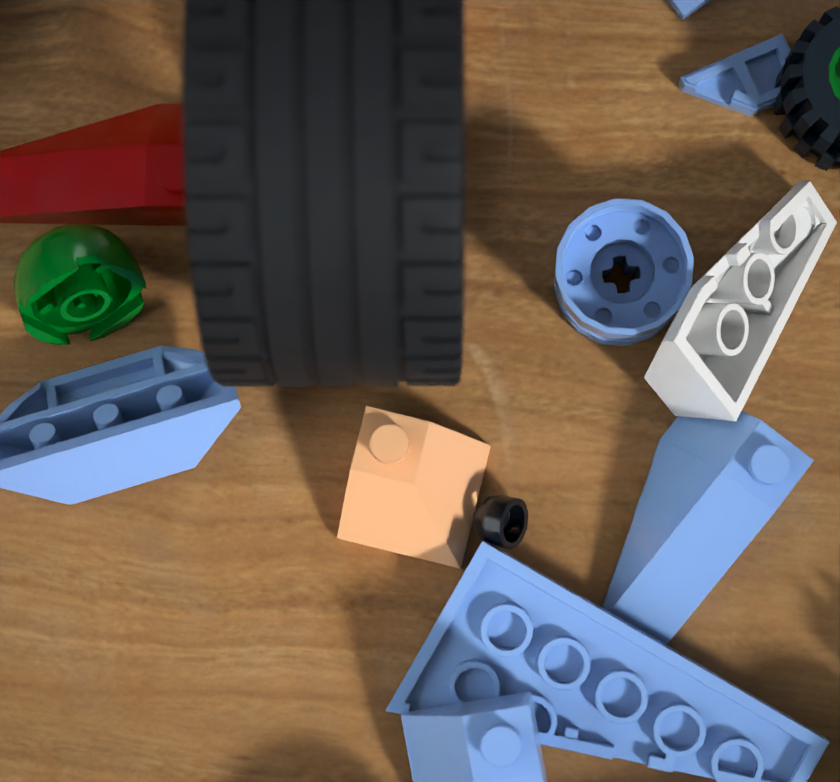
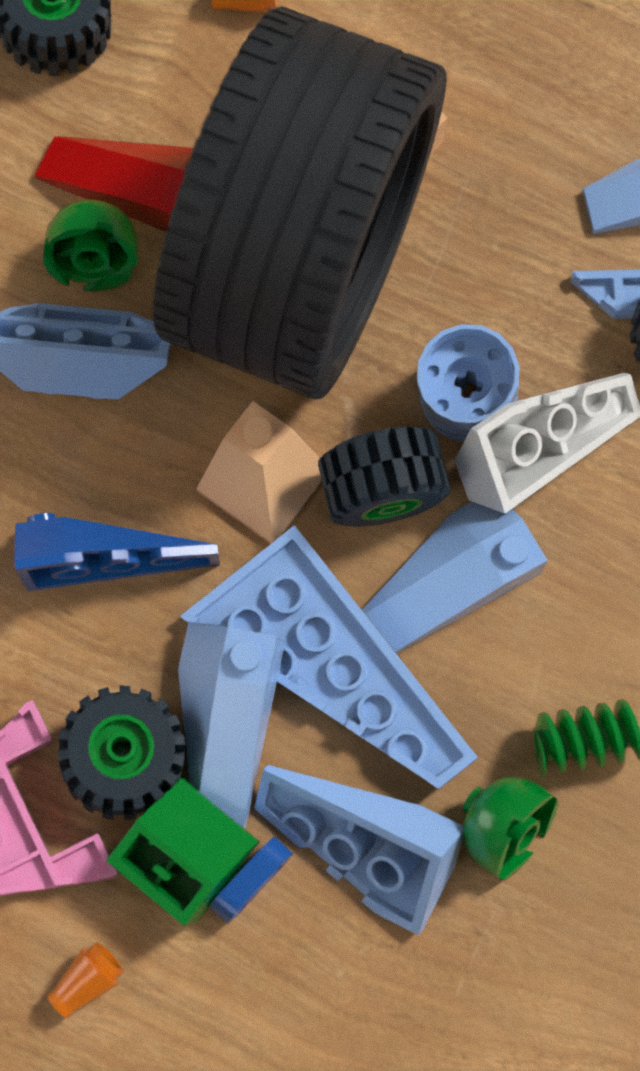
camera: 20 degrees right, 5 degrees down
(216, 685) = (76, 552): none -> blue wedge
(501, 520) = (314, 522): black hinge -> none
(569, 436) = (383, 476): none -> black wheel

